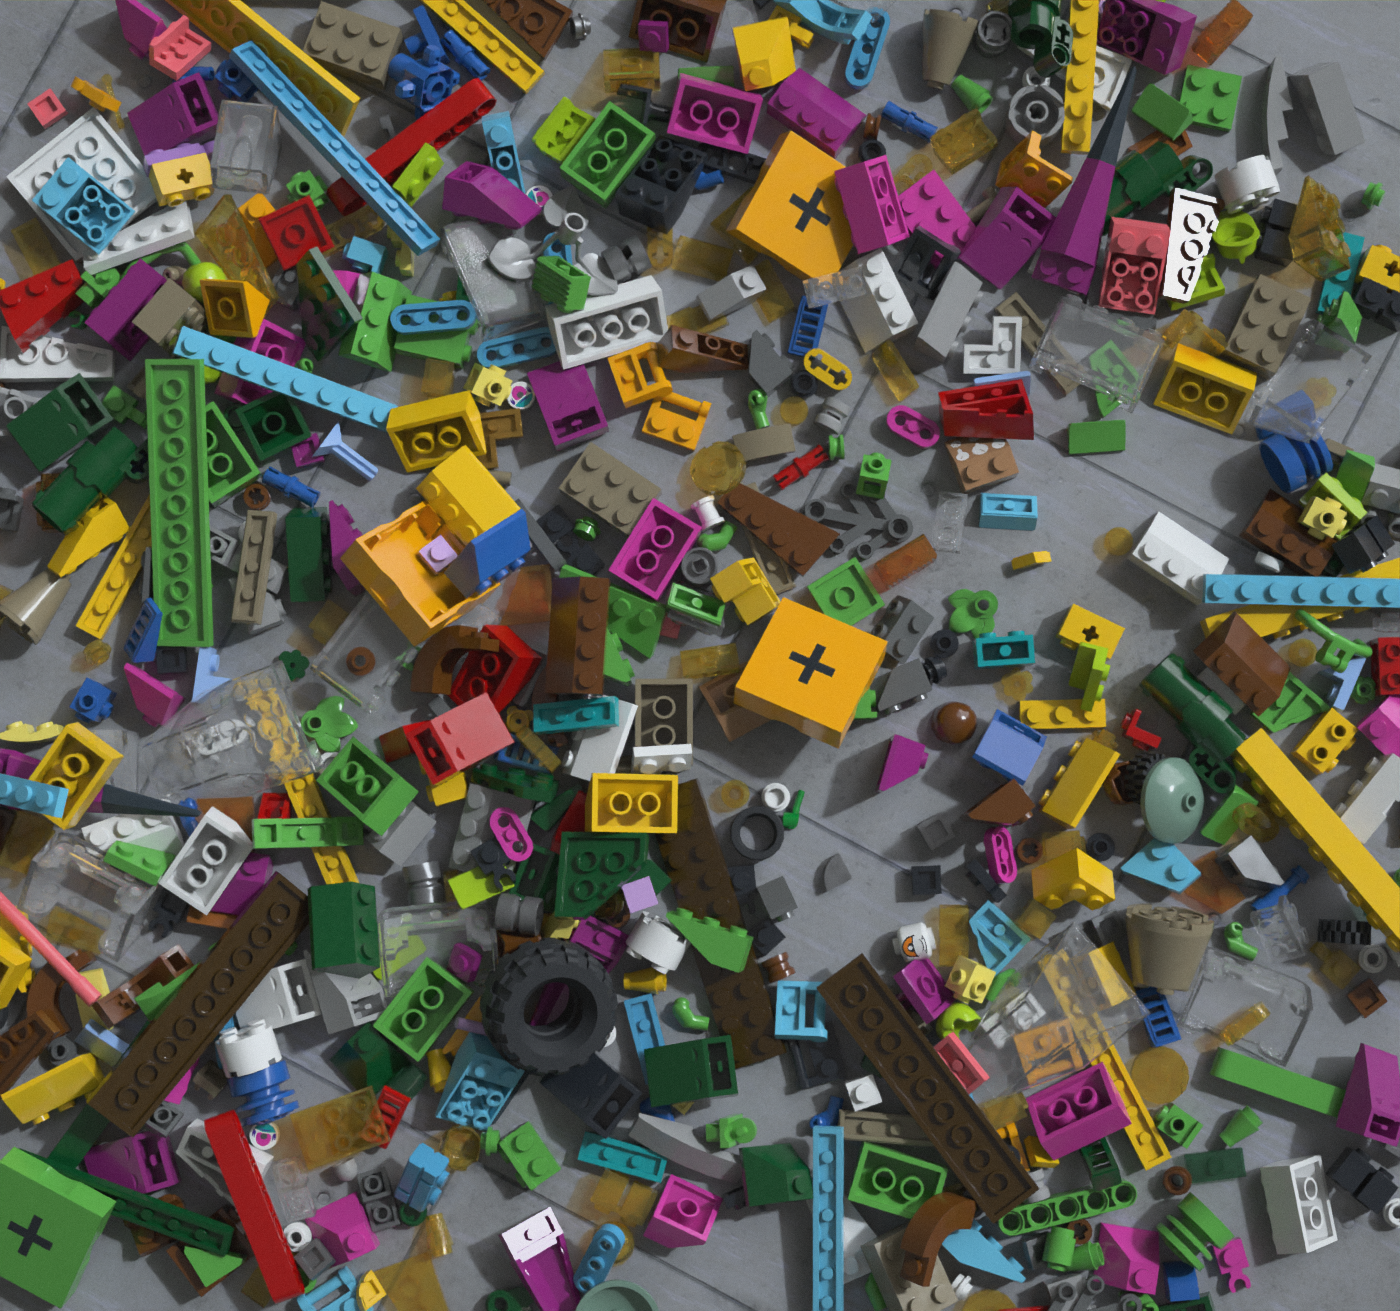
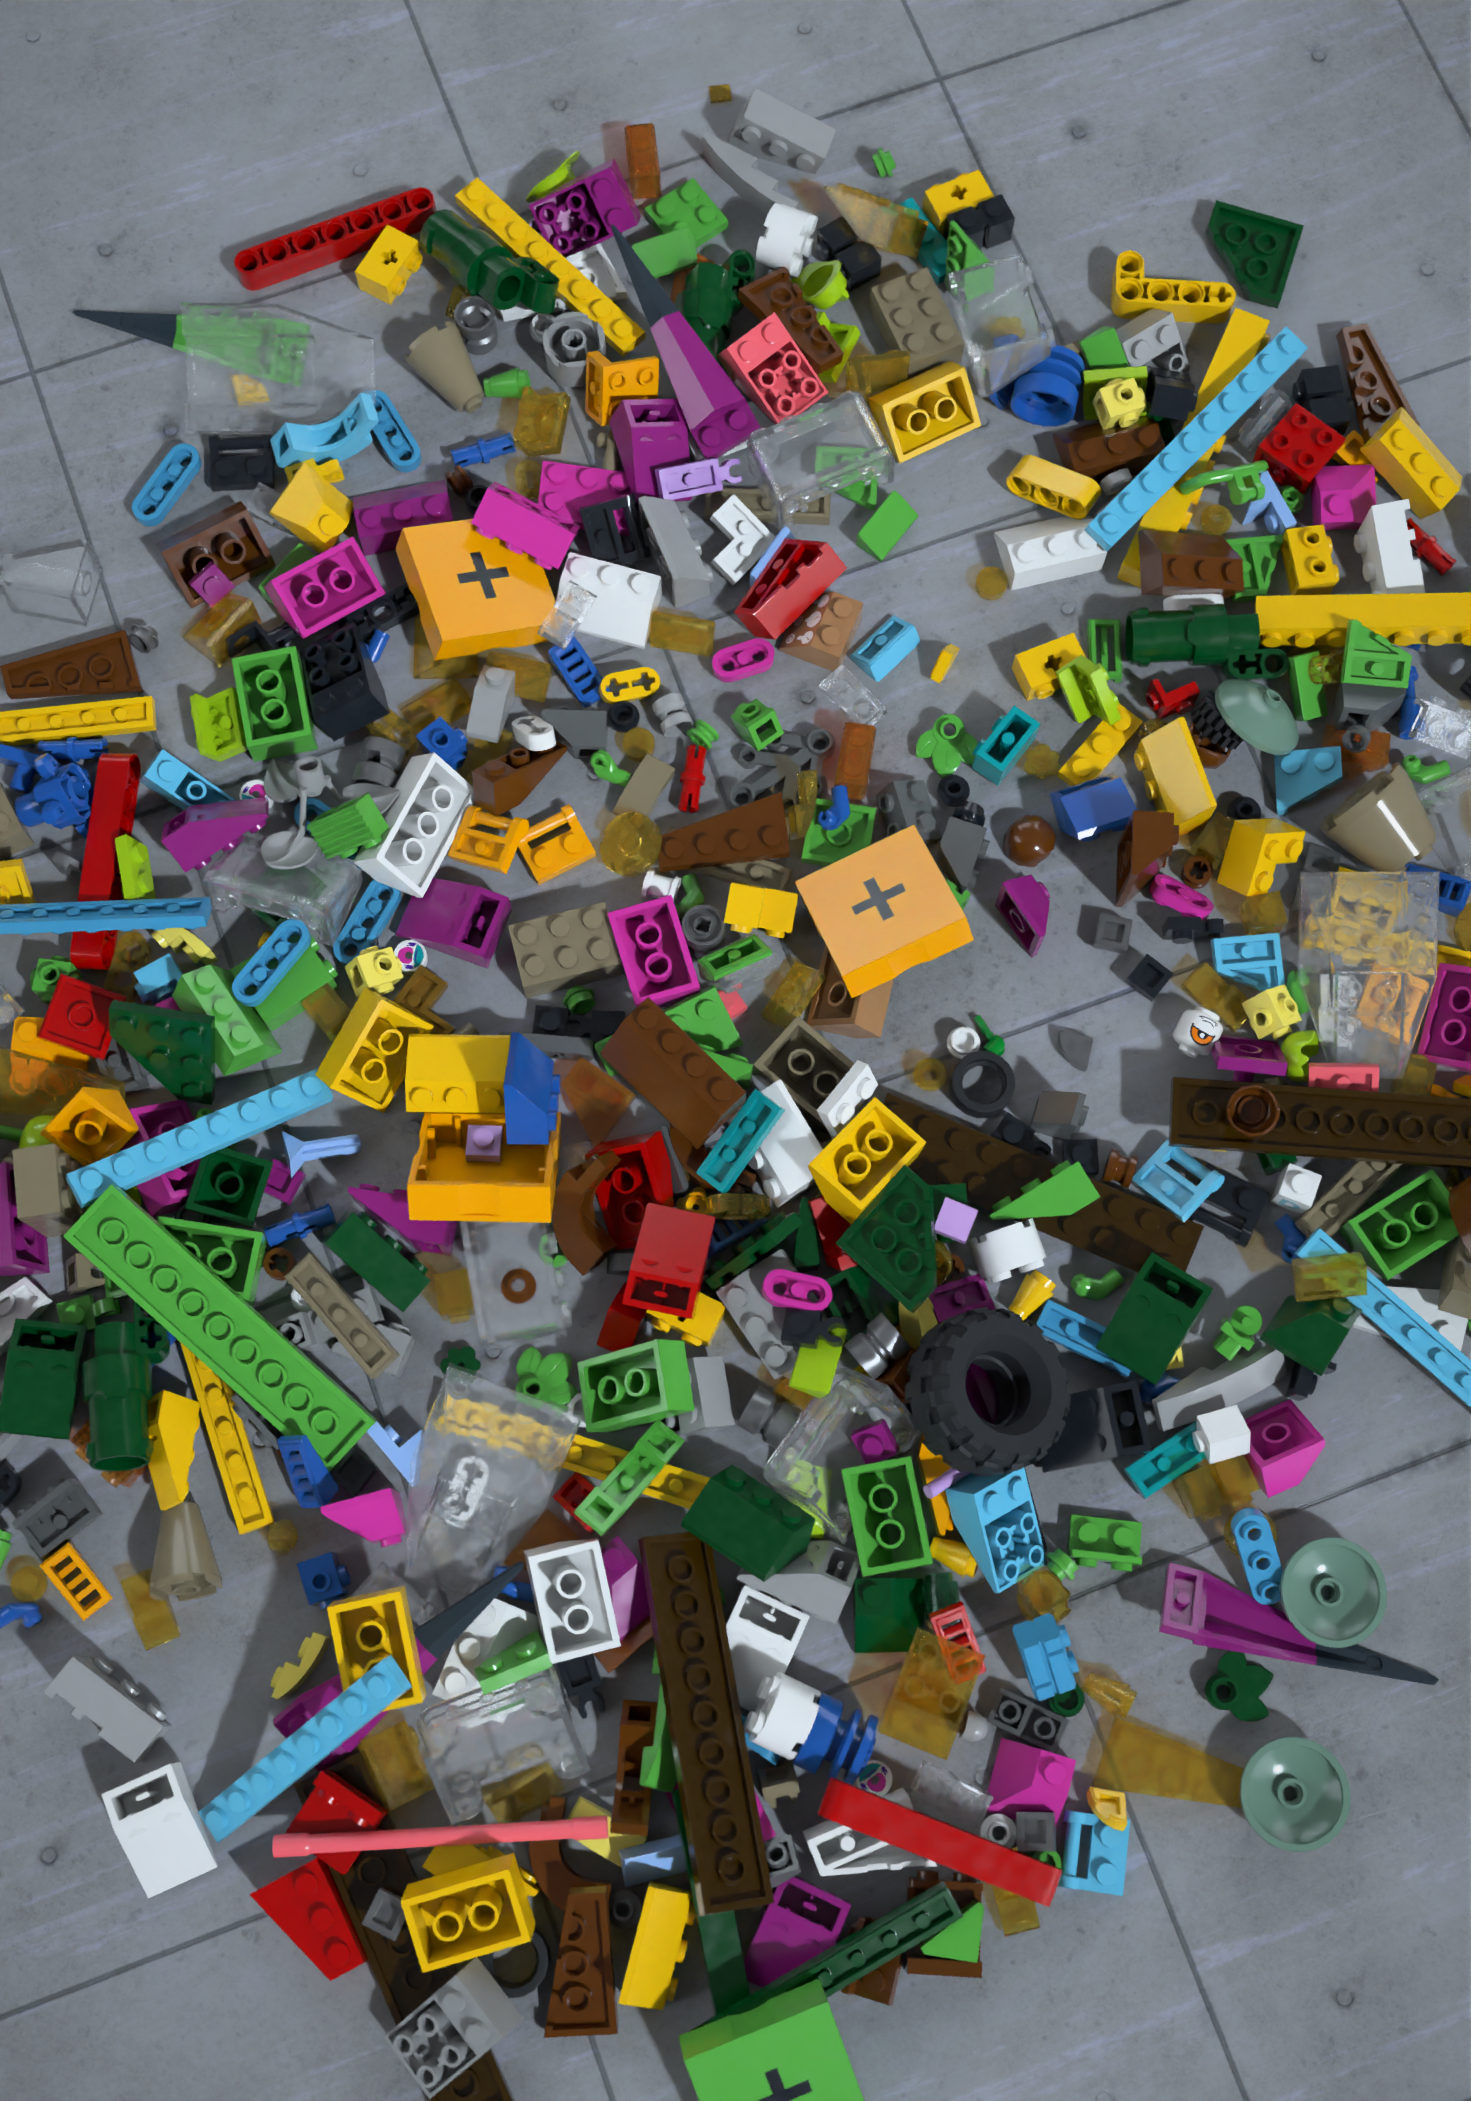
camera: 50 degrees left, 10 degrees down
(654, 1174) = (1222, 1434): none -> white brick
(678, 287) = (444, 741): none -> blue brick
(736, 338) = (533, 733): none -> white beam
(815, 1160) = (1329, 1276): none -> clear yellow slope
(836, 559) = (802, 814): none -> clear yellow slope
(858, 583) = (838, 811): none -> blue arm
(878, 1023) = (1252, 1111): none -> reddish brown hair
(1011, 281) = (694, 478): none -> plate
(1118, 673) = (1115, 675): none -> bright green tile
(1211, 882) = (1349, 735): none -> dark grey hinge
(1224, 524) = (1053, 486): none -> yellow beam
(1280, 845) = (1373, 659): none -> bright green wing
(1329, 34) = (720, 93): none -> clear yellow window

